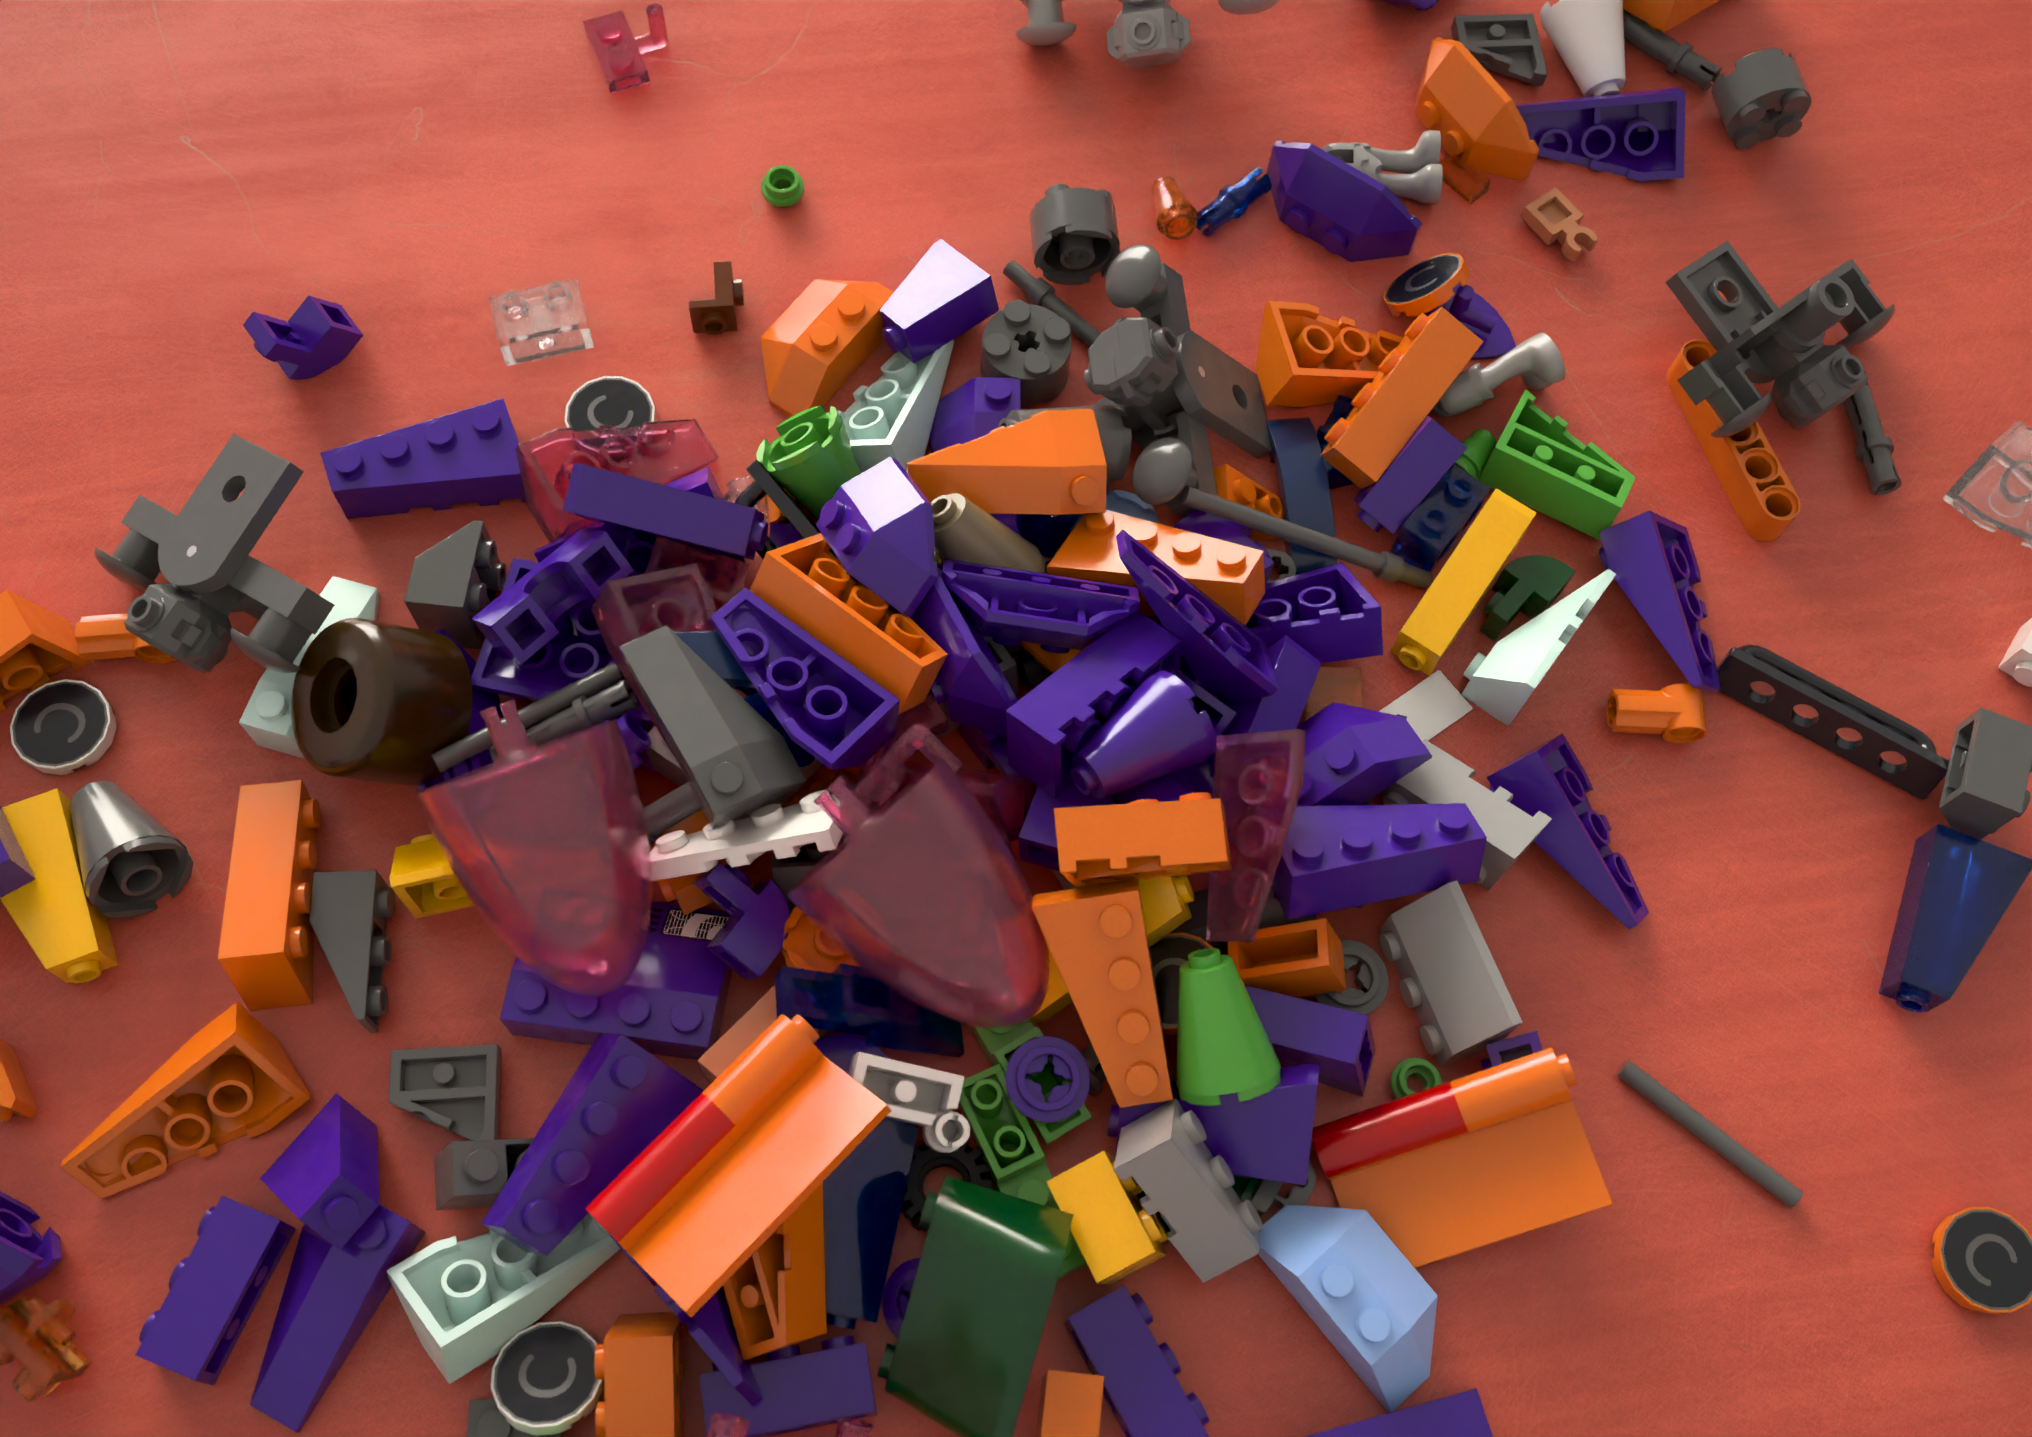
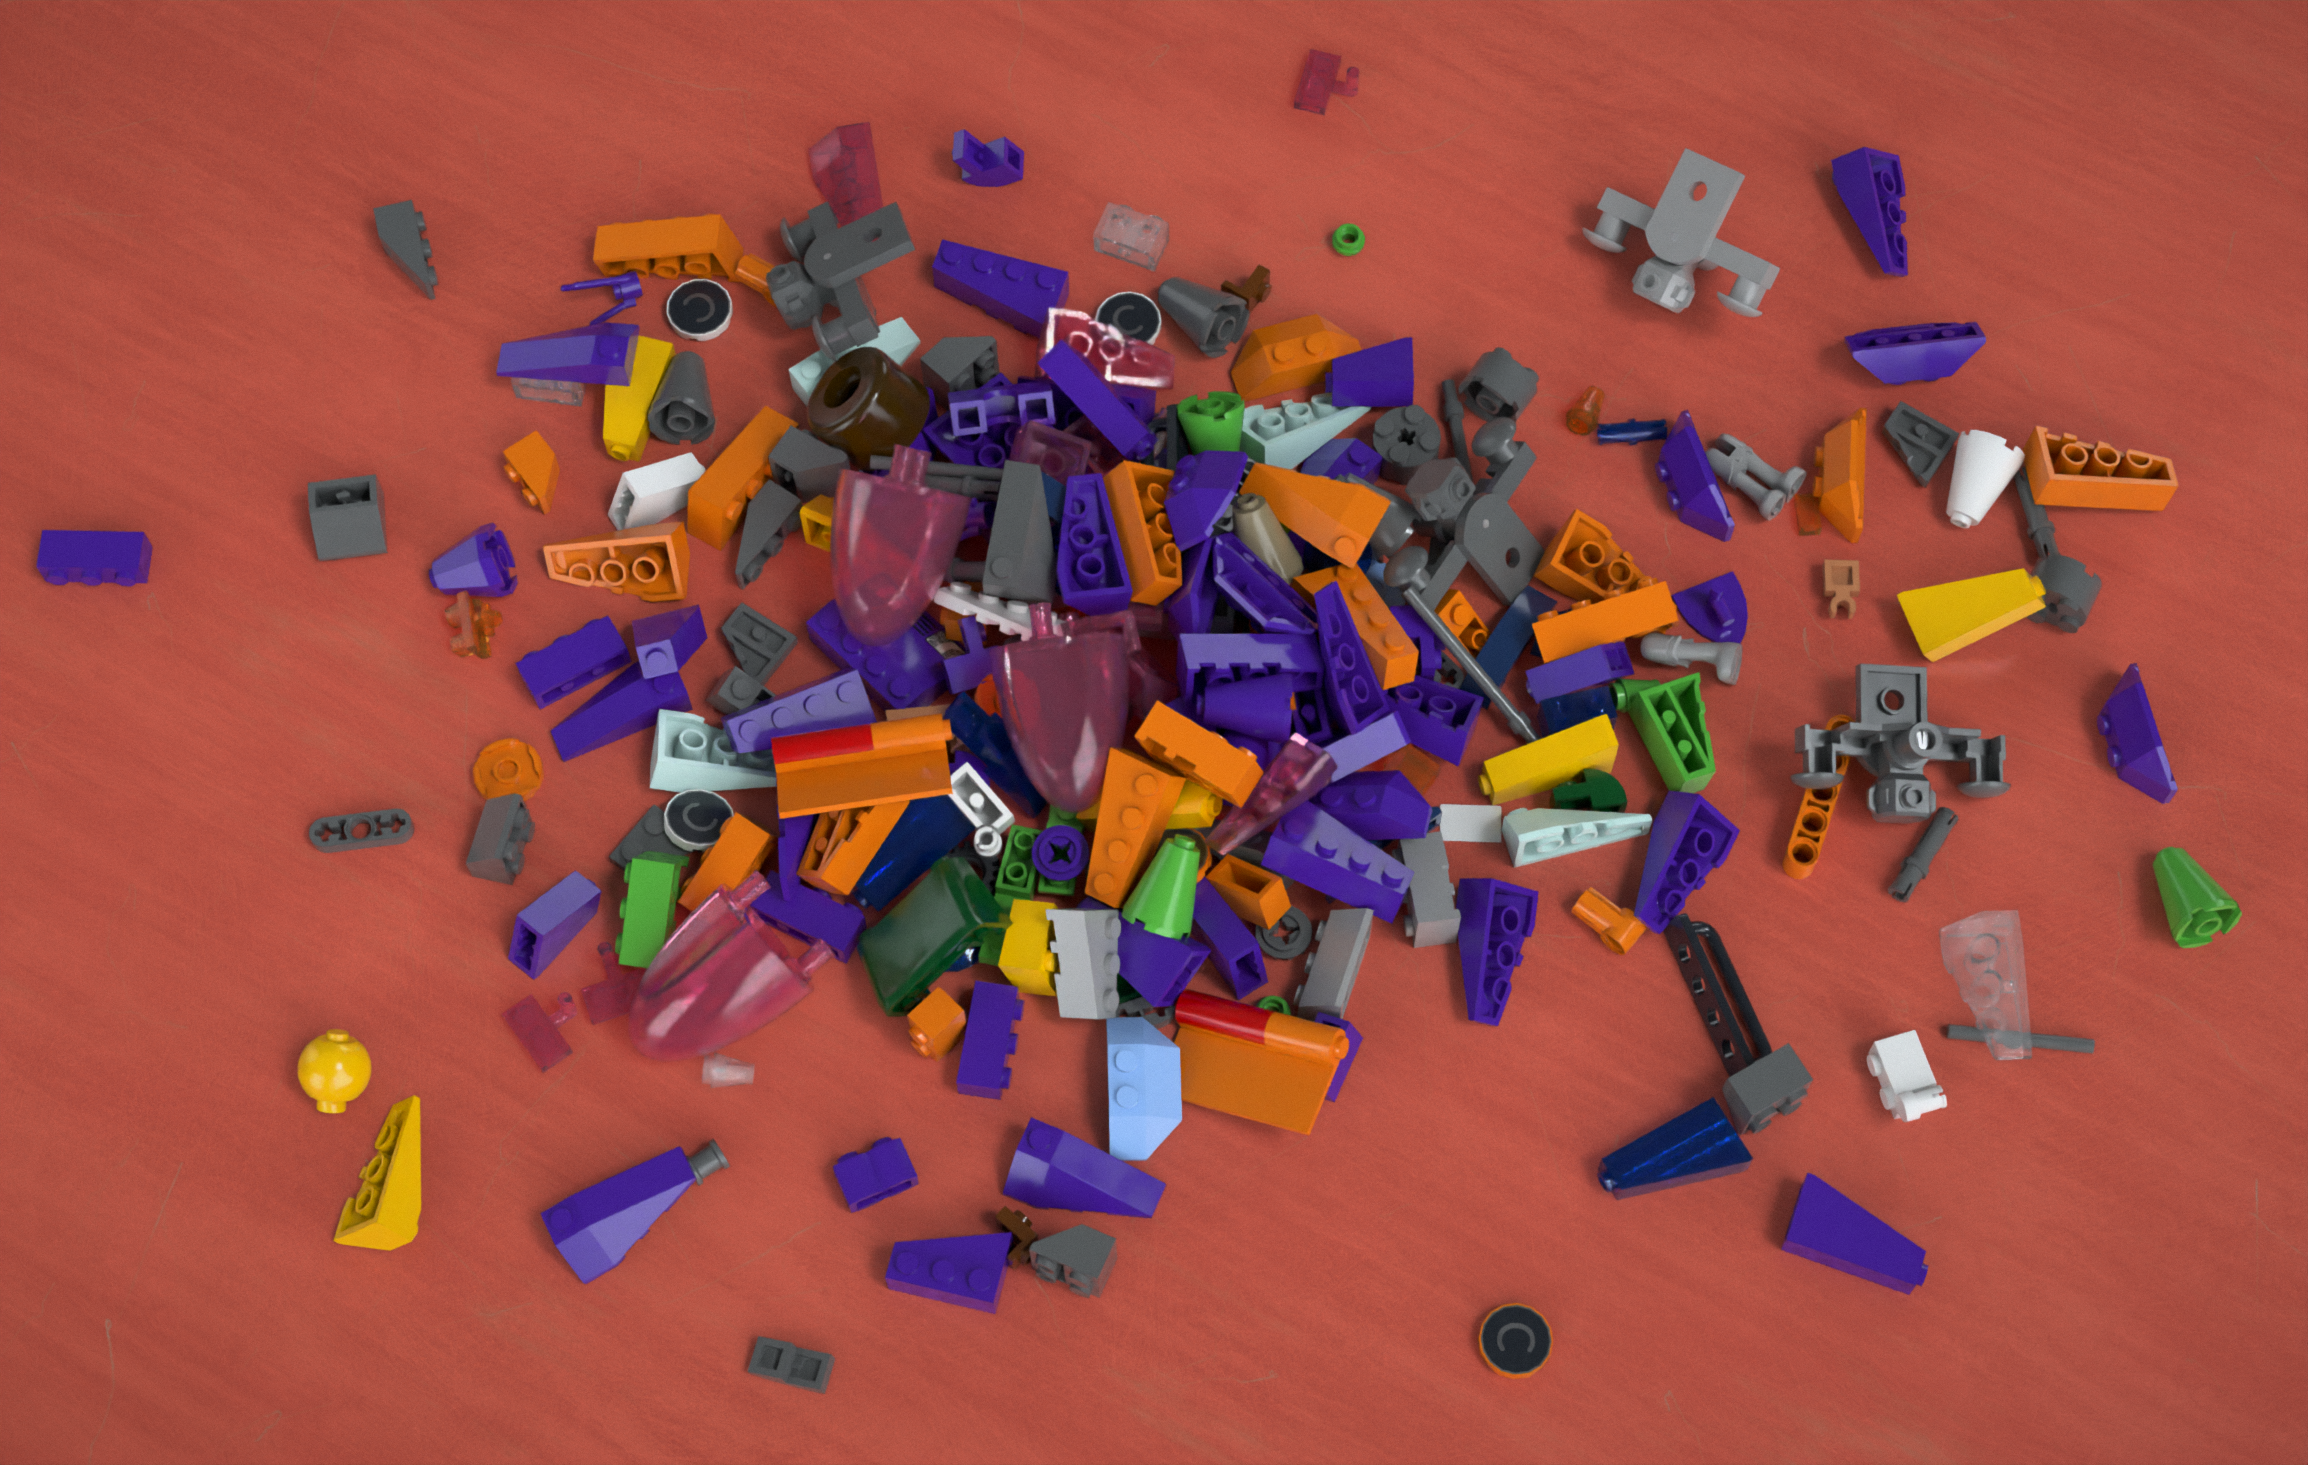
camera: 45 degrees right, 0 degrees up
(137, 449) = (847, 172): none -> clear pink wedge
(168, 990) = (654, 491): none -> white slope
(355, 822) = (806, 464): none -> dark grey slope
(691, 351) = (1204, 314): none -> dark grey cone
(1426, 285) = (1703, 564): tile -> none
(1614, 133) = (1931, 543): dark purple wedge -> none
(1699, 171) = (1969, 609): none -> yellow slope
(1710, 1134) = (1418, 1162): dark grey bar -> none
(1942, 183) = (2135, 740): none -> dark purple wedge

